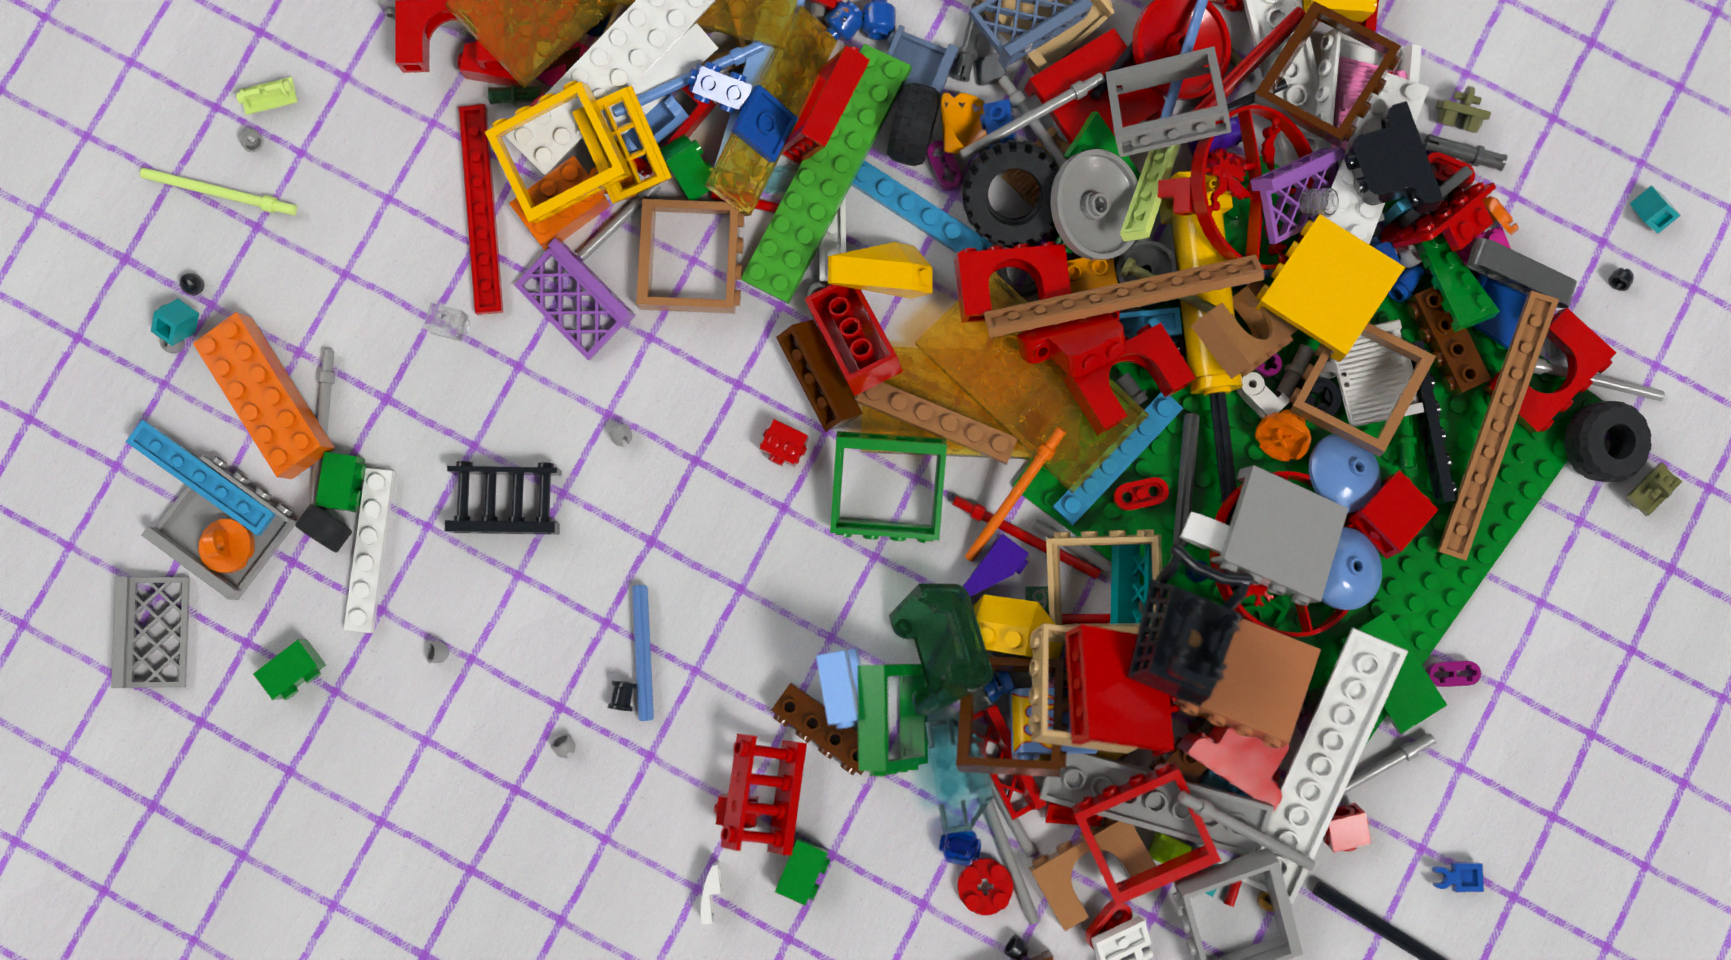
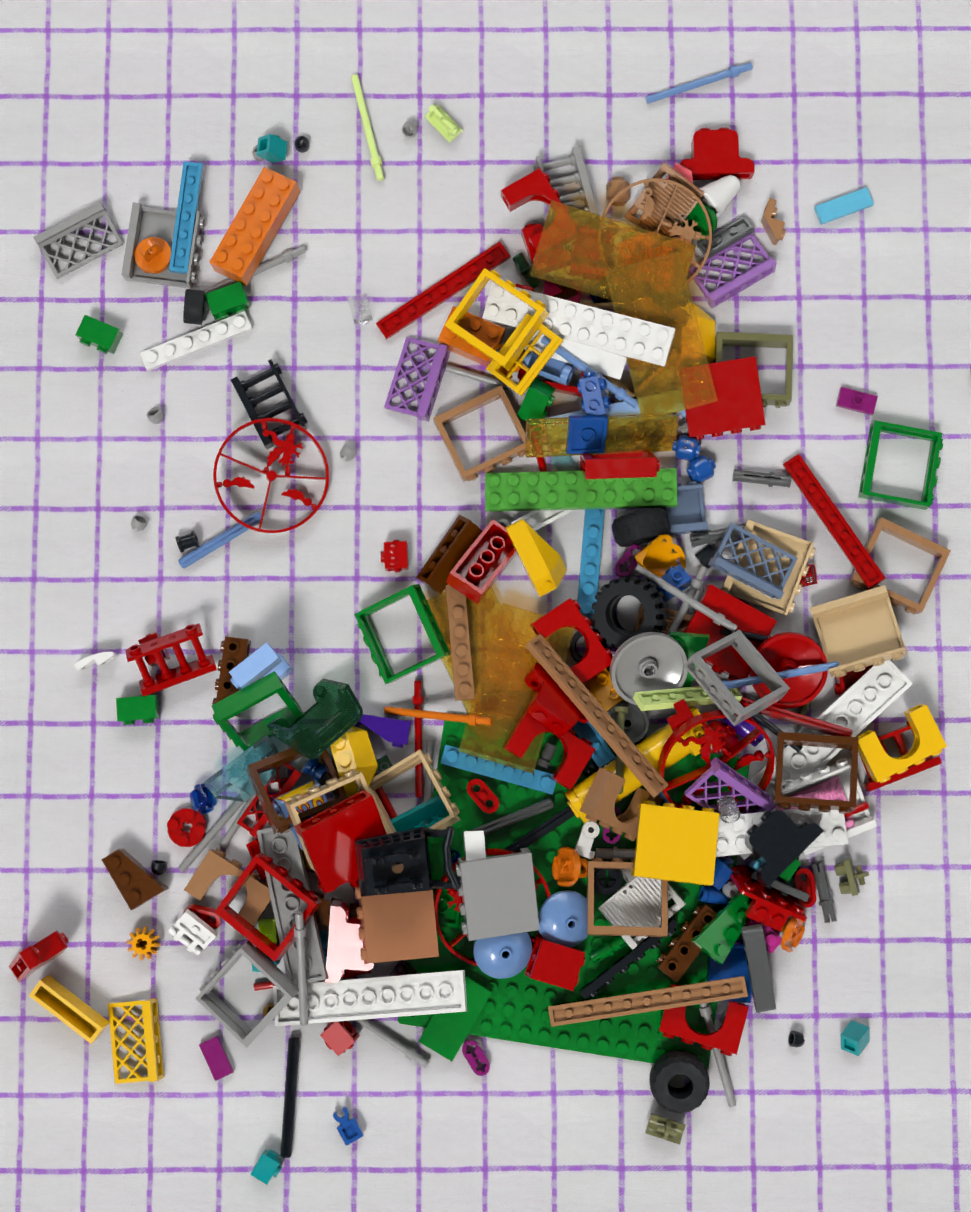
camera: 65 degrees right, 0 degrees up
(575, 505) = (287, 448): none -> red piece

